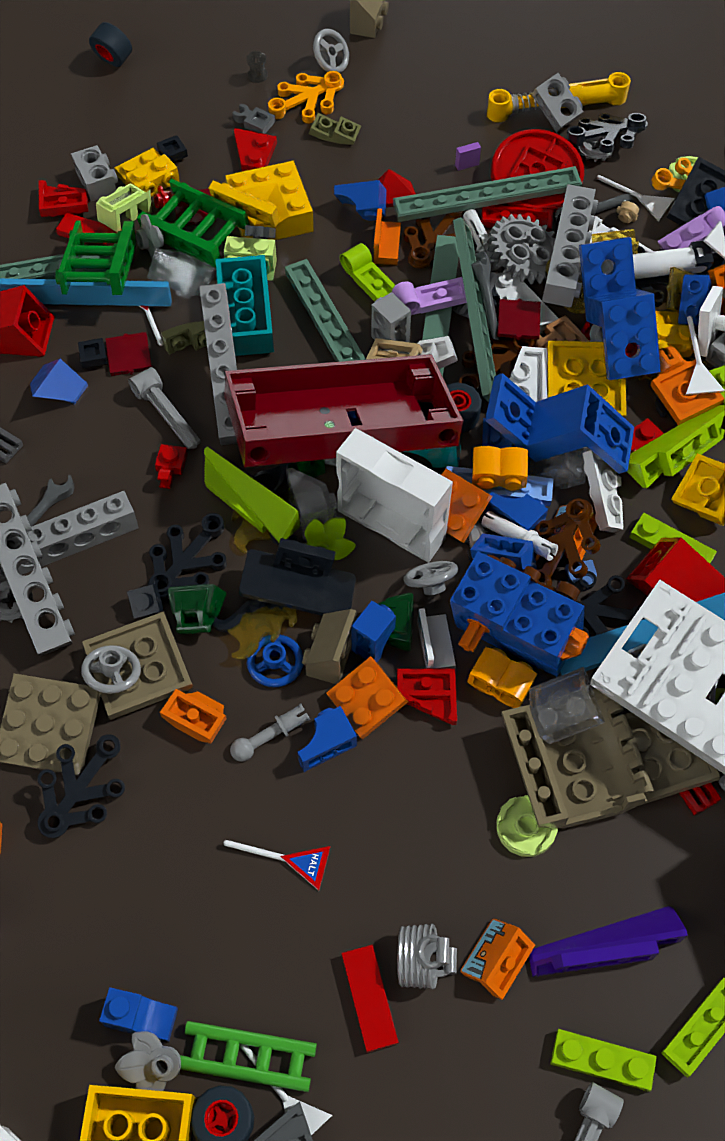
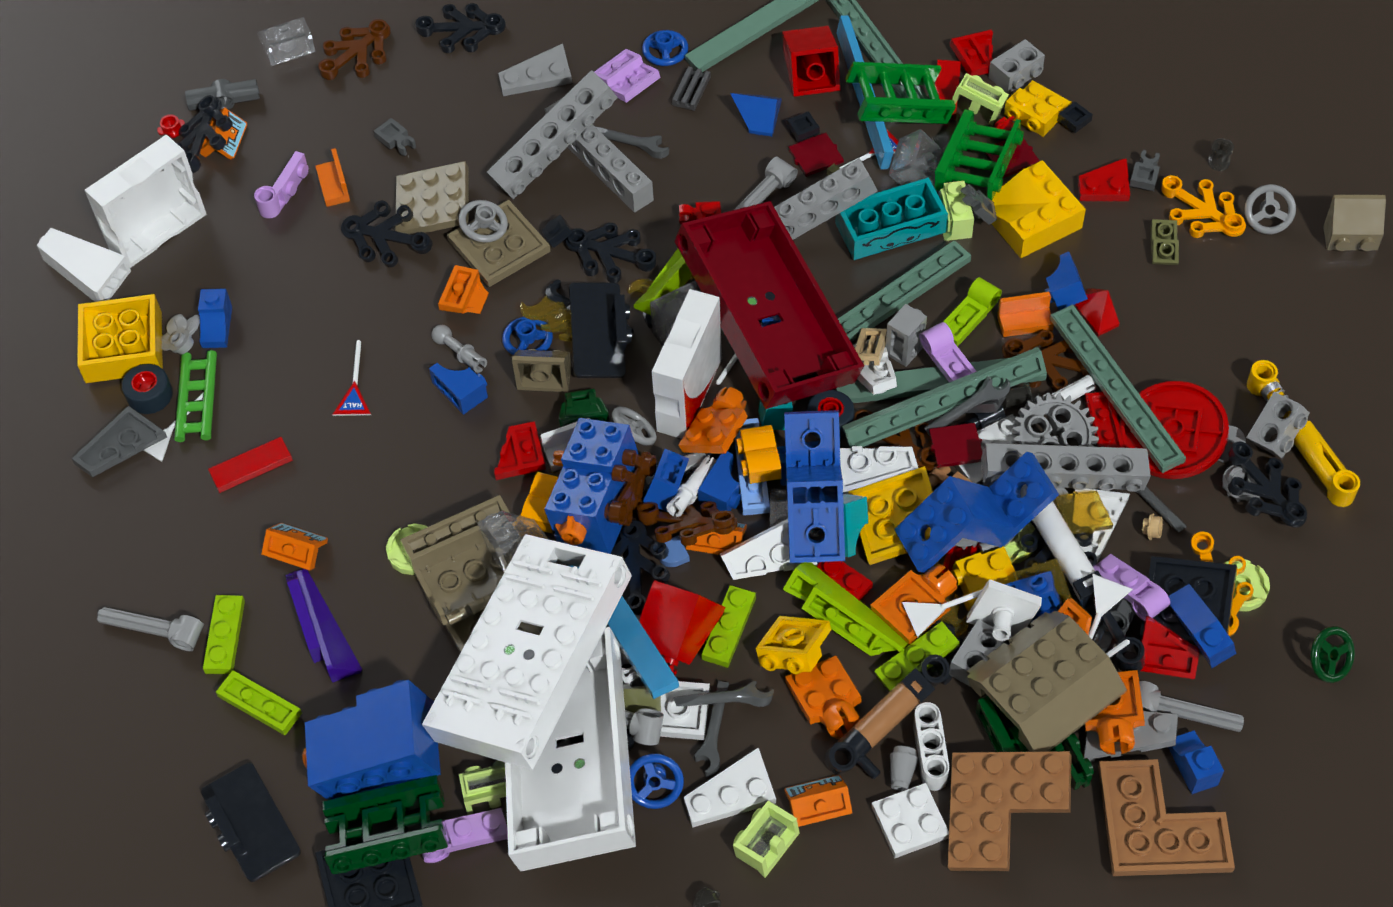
camera: 80 degrees right, 5 degrees down
(110, 44) = (1190, 28): black wheel -> none
(149, 236) = (947, 126): light grey plate -> none
(196, 602) = (558, 265): dark green piece -> none
(260, 210) = (1006, 181): yellow plate -> none
(330, 536) = (647, 341): lime plate -> none
(367, 697) = (503, 406): orange plate -> none
(372, 630) = (557, 387): blue arch -> none
(414, 953) = (282, 484): light grey piece -> none
(467, 156) = (1171, 363): medium lavender tile -> none
(655, 205) = (1184, 550): white piece -> none

